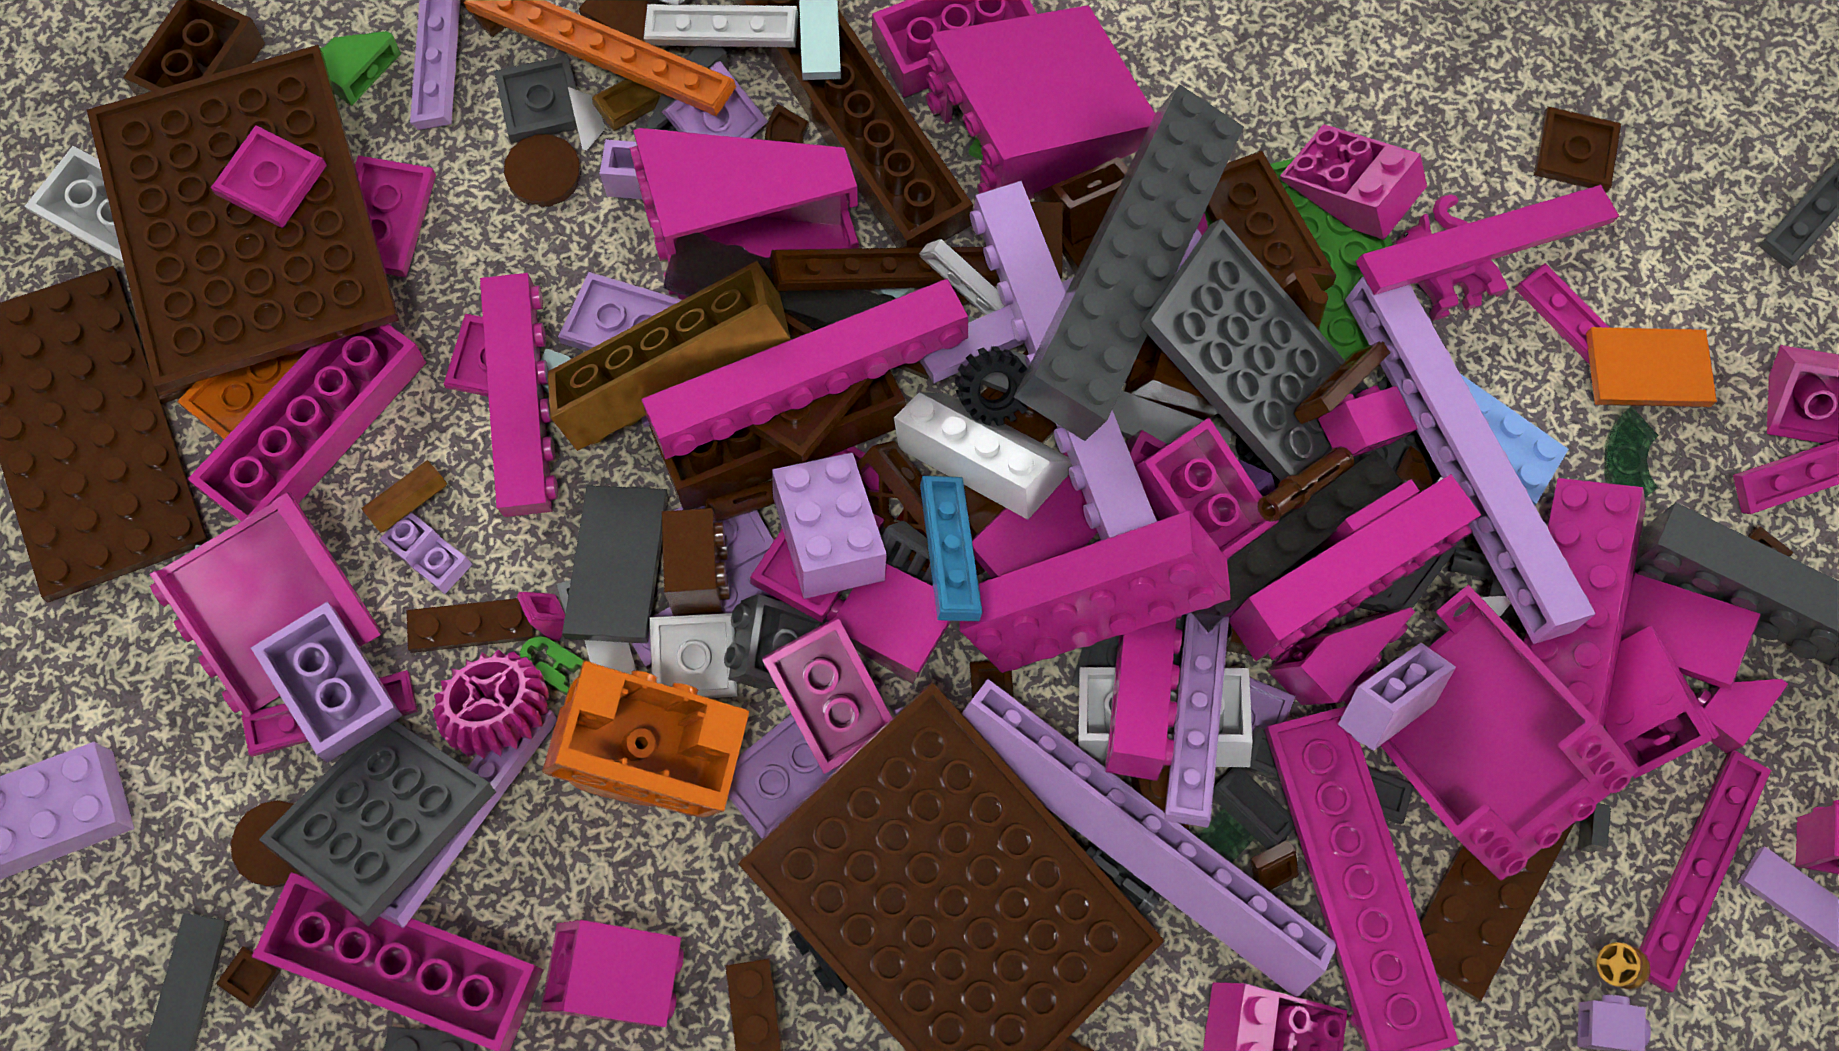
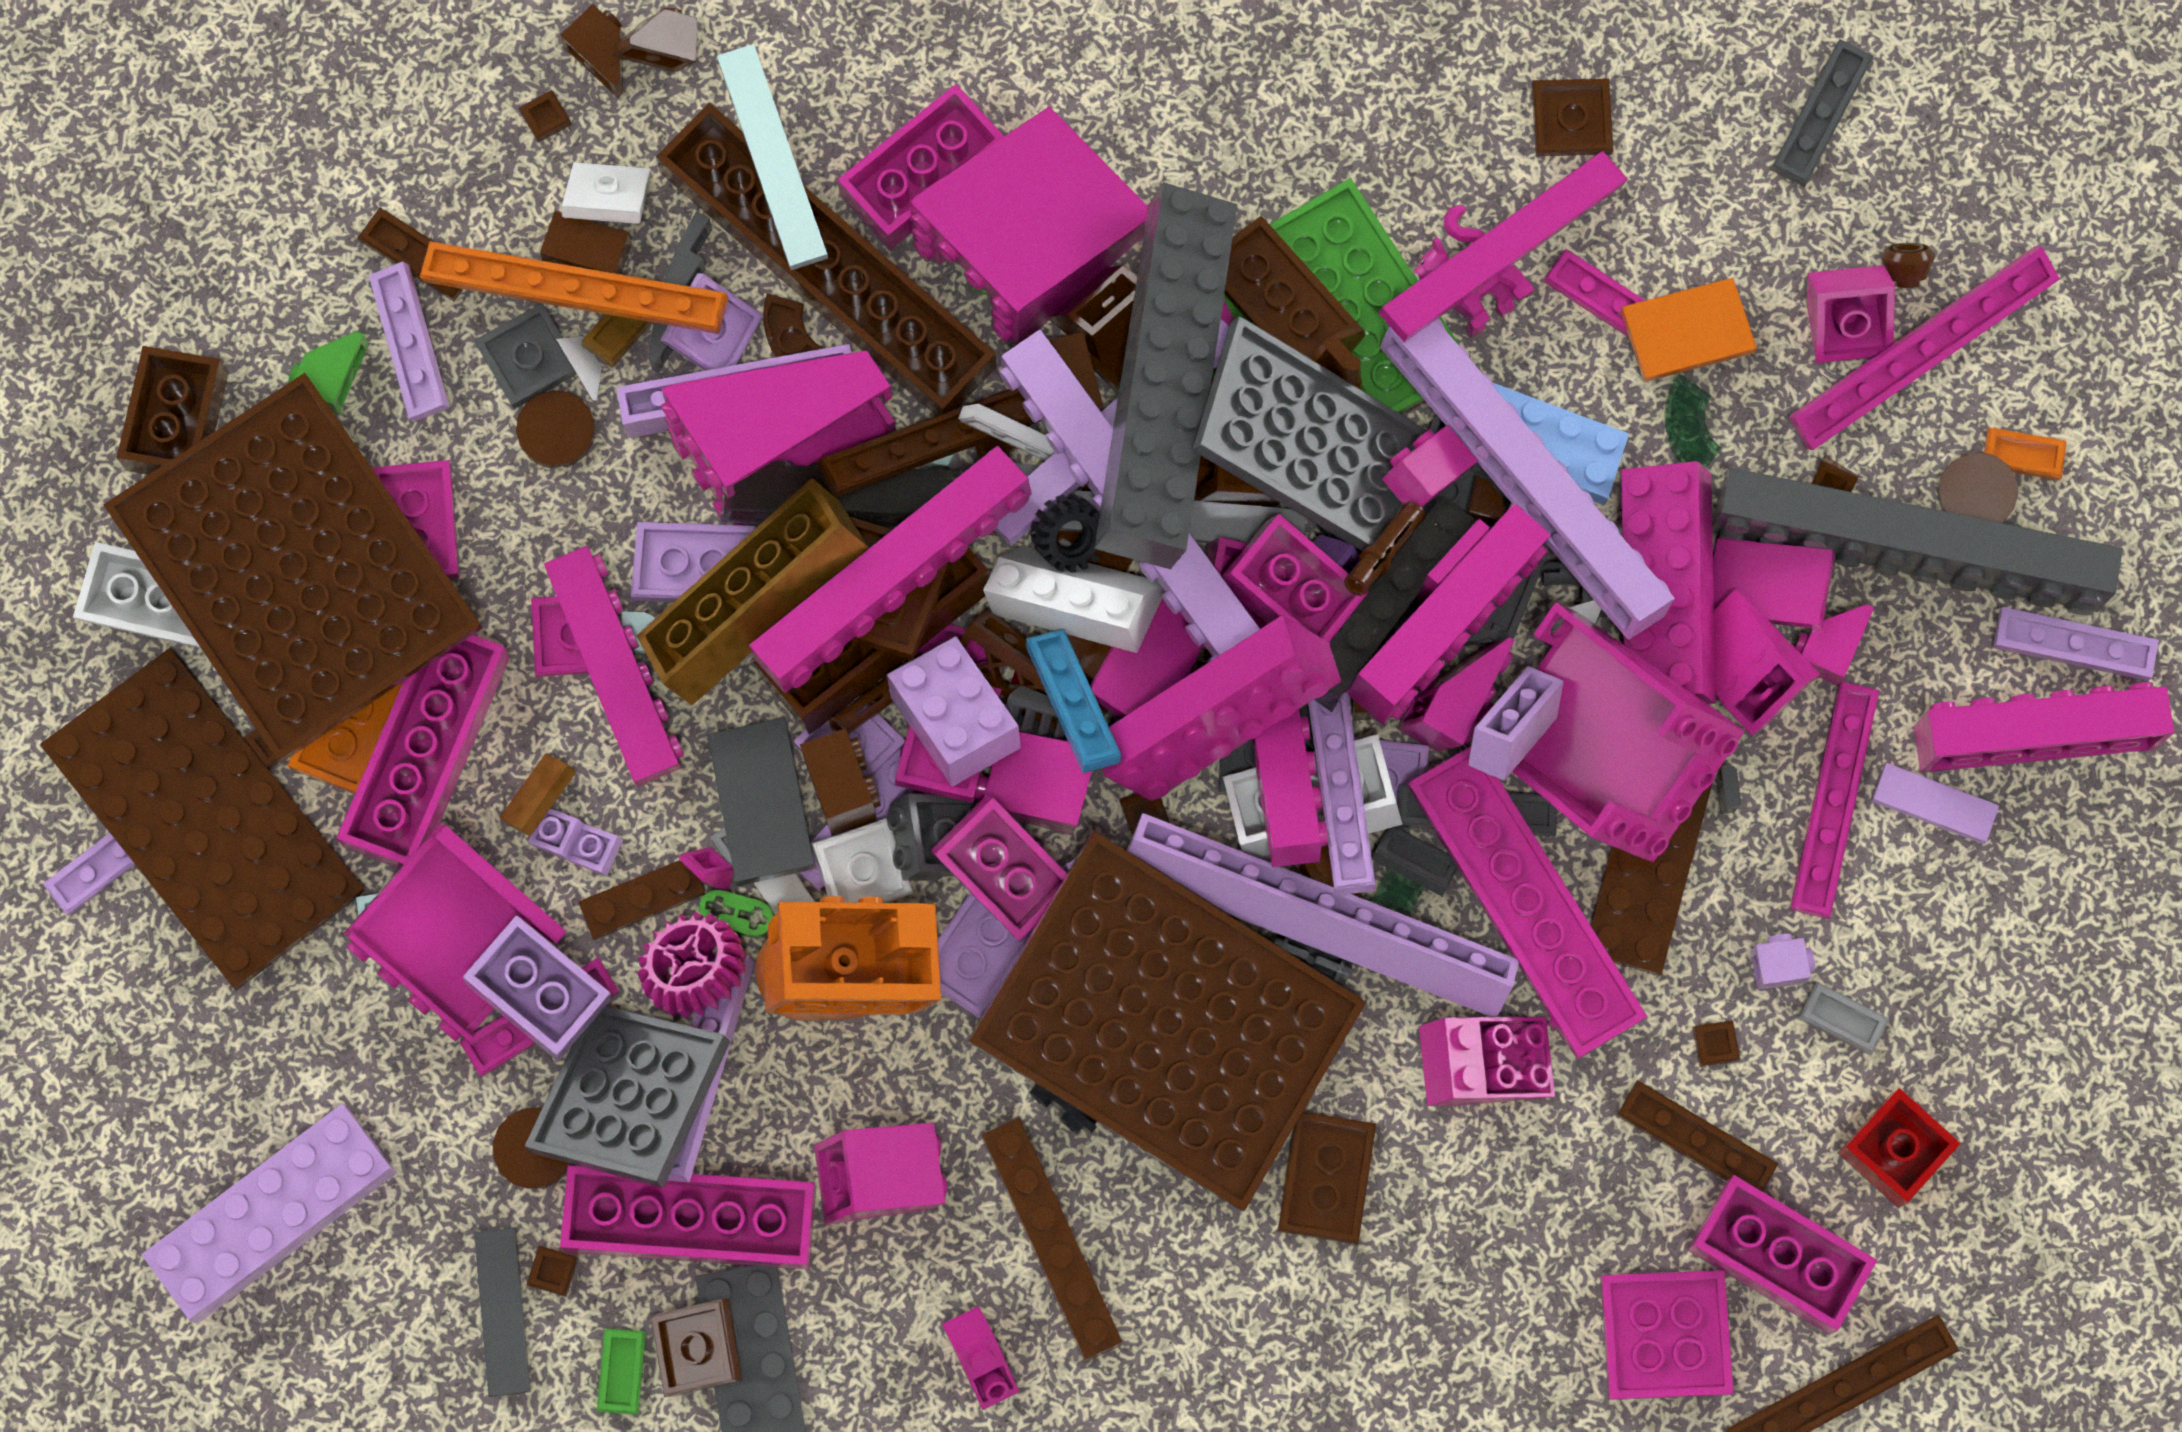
camera: 15 degrees left, 5 degrees up
(268, 176) = (310, 523): dark pink tile -> none
(721, 25) = (691, 235): white tile -> none
(1275, 866) = (1448, 907): reddish brown tile -> none
(1341, 382) = (1394, 437): reddish brown tile -> none
(1357, 179) = (1360, 218): dark pink slope -> none
(1613, 963) = (1769, 906): pearl gold wheel -> none

